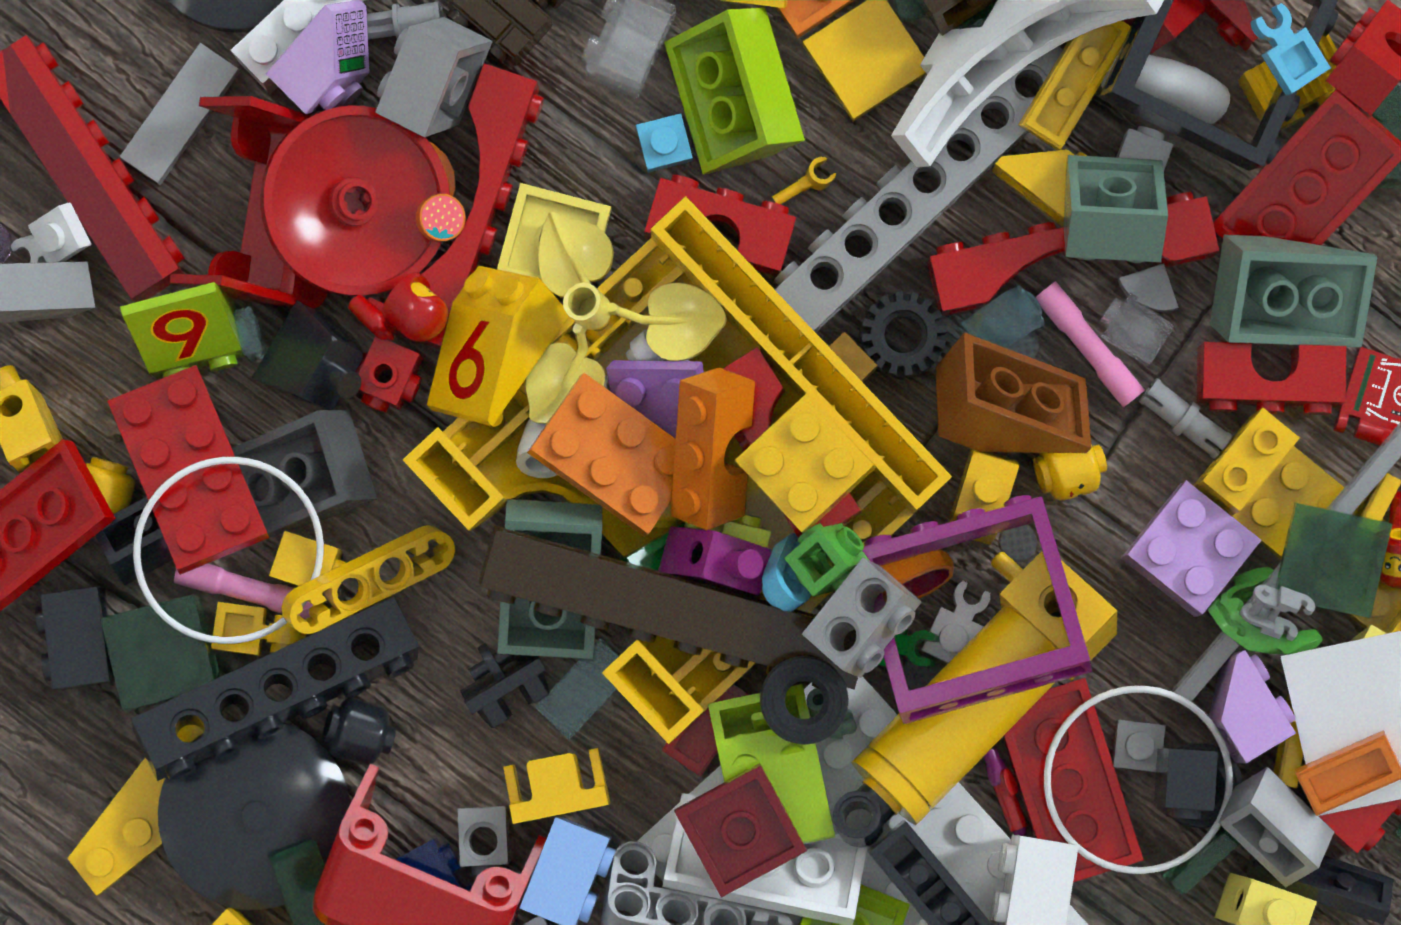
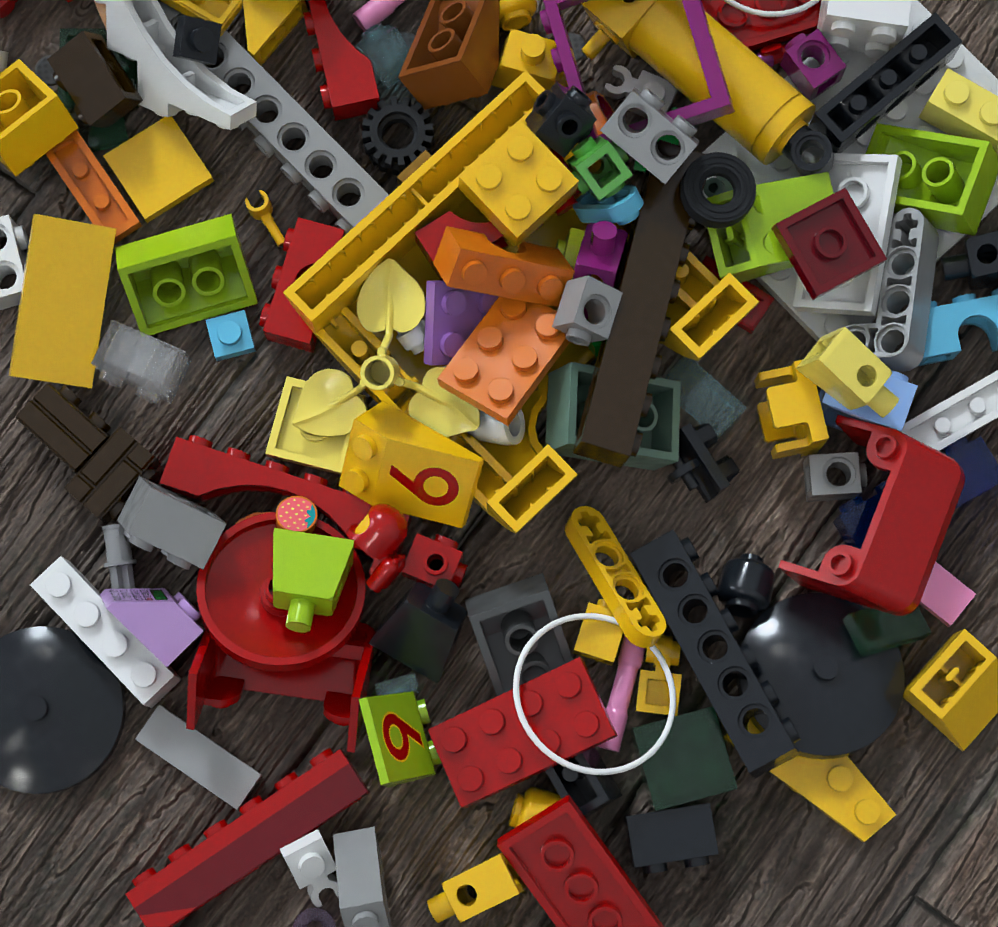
camera: 90 degrees left, 5 degrees down
(365, 229) = (308, 575): none -> lime torso
(586, 831) = (849, 372): none -> light yellow torso
(661, 560) = (601, 306): none -> light grey brick
(885, 515) = (561, 118): none -> black brick
(959, 832) = (808, 80): none -> magenta brick
(1003, 95) = (197, 40): none -> black plate

